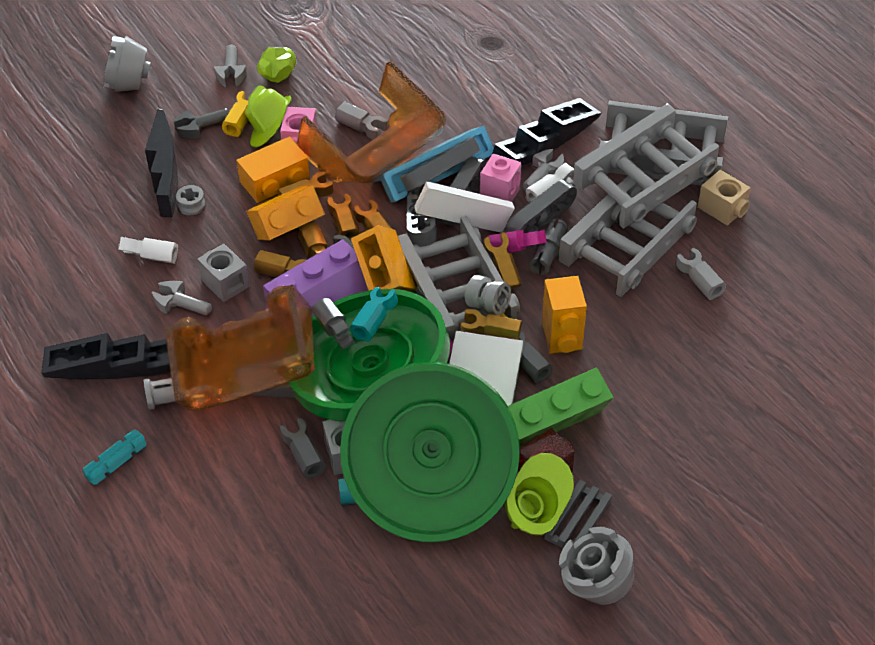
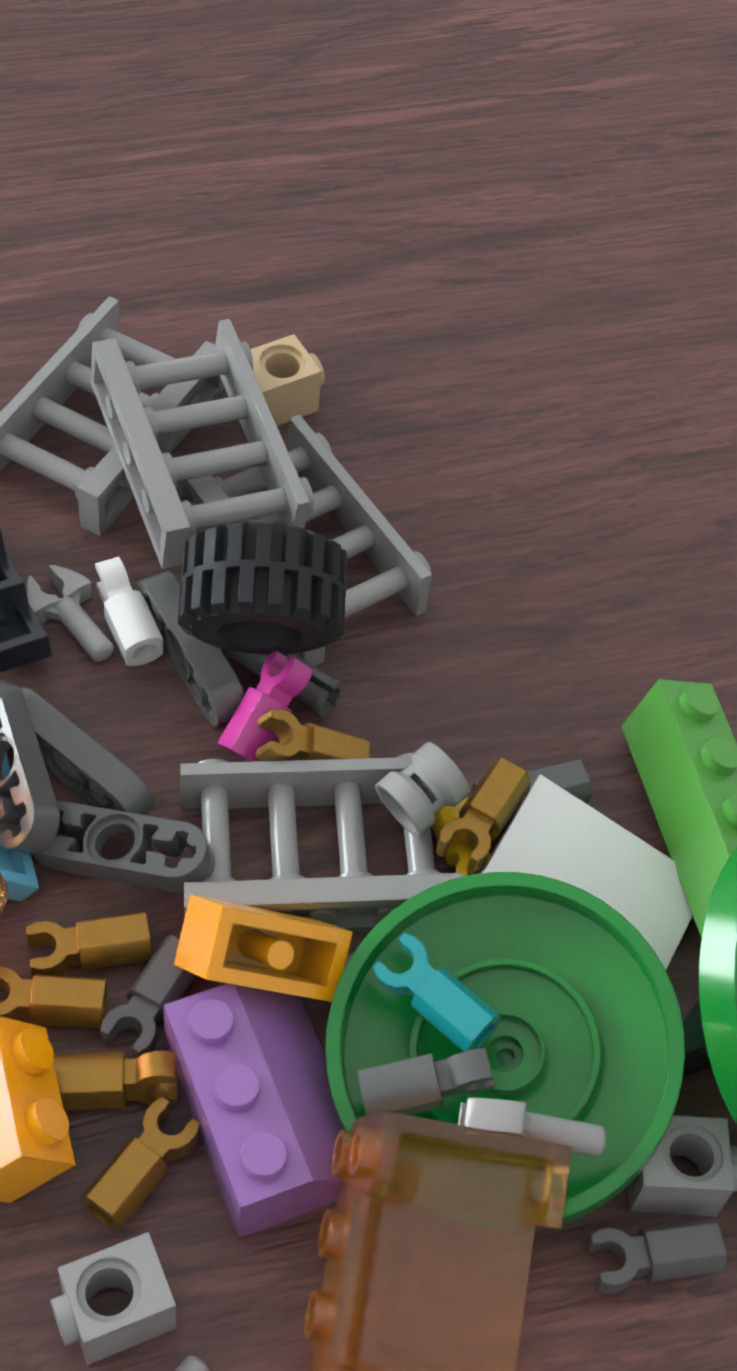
camera: 80 degrees left, 5 degrees up
(322, 353) = (513, 1119): none -> light grey bar
(453, 203) = (157, 761): white tile -> none
(500, 178) = (87, 680): bright pink brick -> none
(554, 198) = (263, 588): none -> black tyre
(563, 314) = (499, 692): light orange brick -> none
(701, 274) = (428, 480): light grey bar -> none

